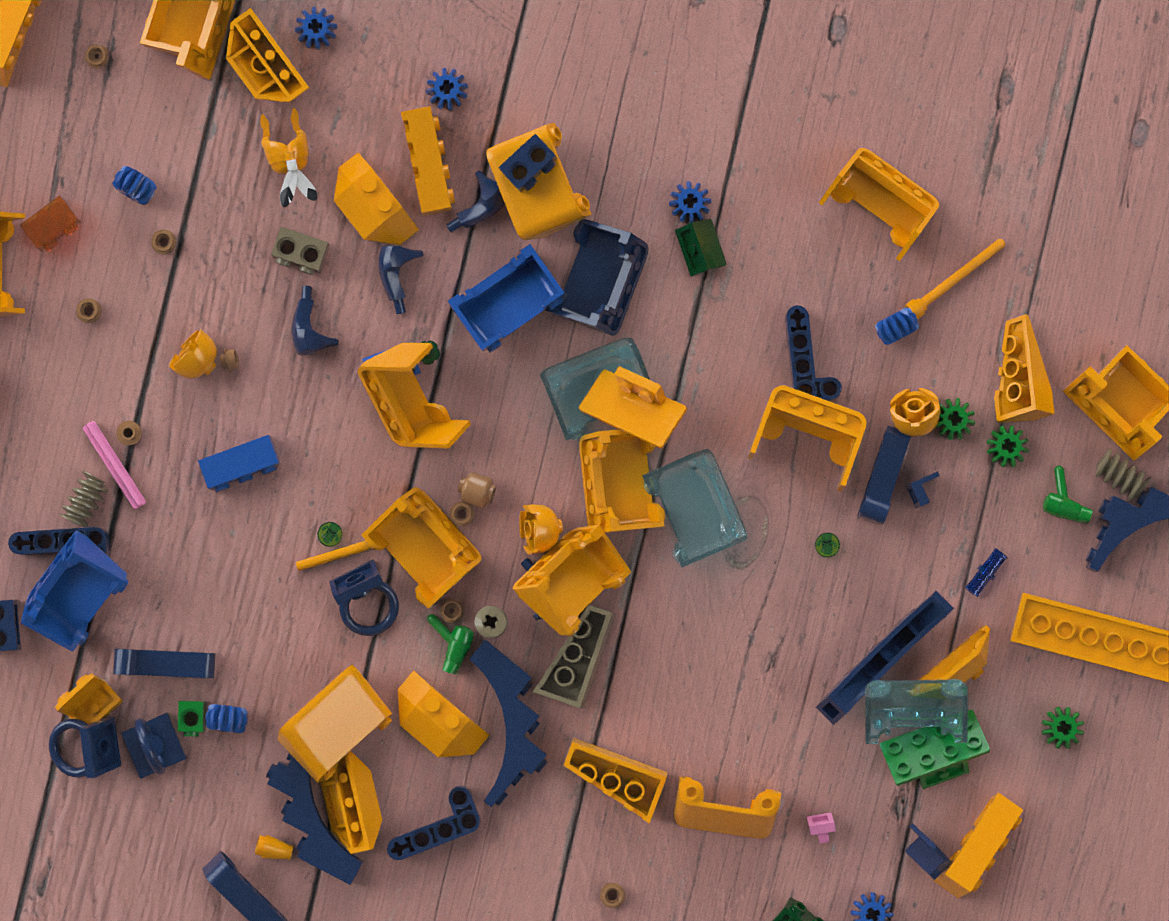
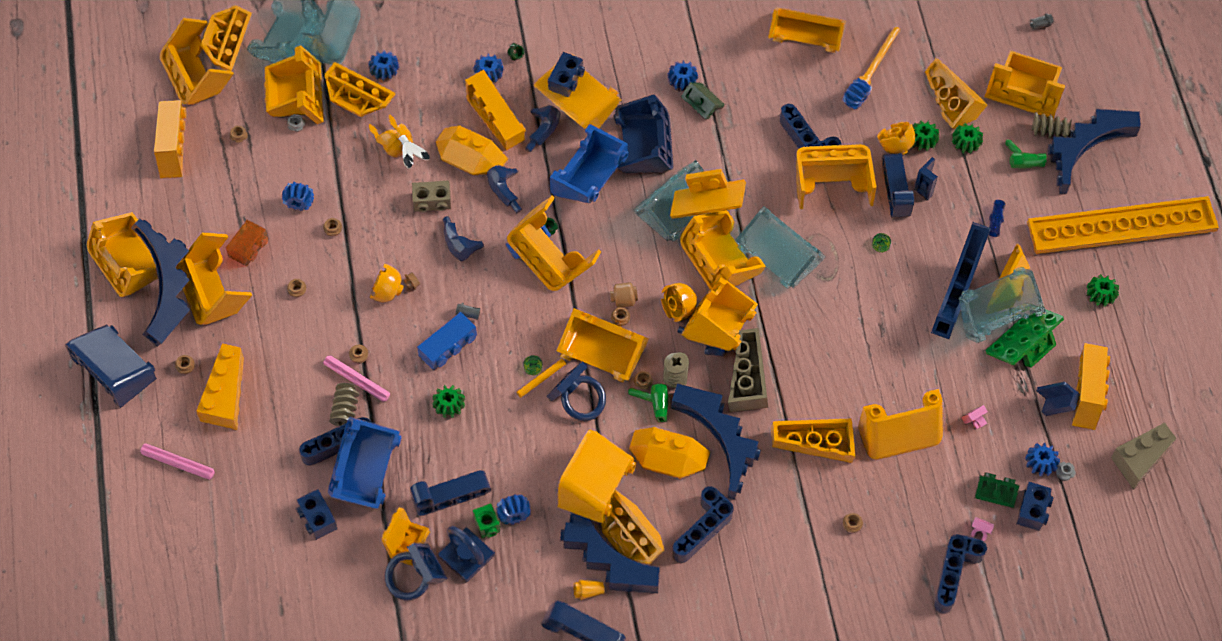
camera: 25 degrees left, 25 degrees down
(173, 75) = (293, 119): none -> light grey plate
(215, 537) = (448, 394): none -> green gear
(280, 430) = (468, 311): none -> dark grey pin
(492, 76) = (519, 51): none -> dark green plate

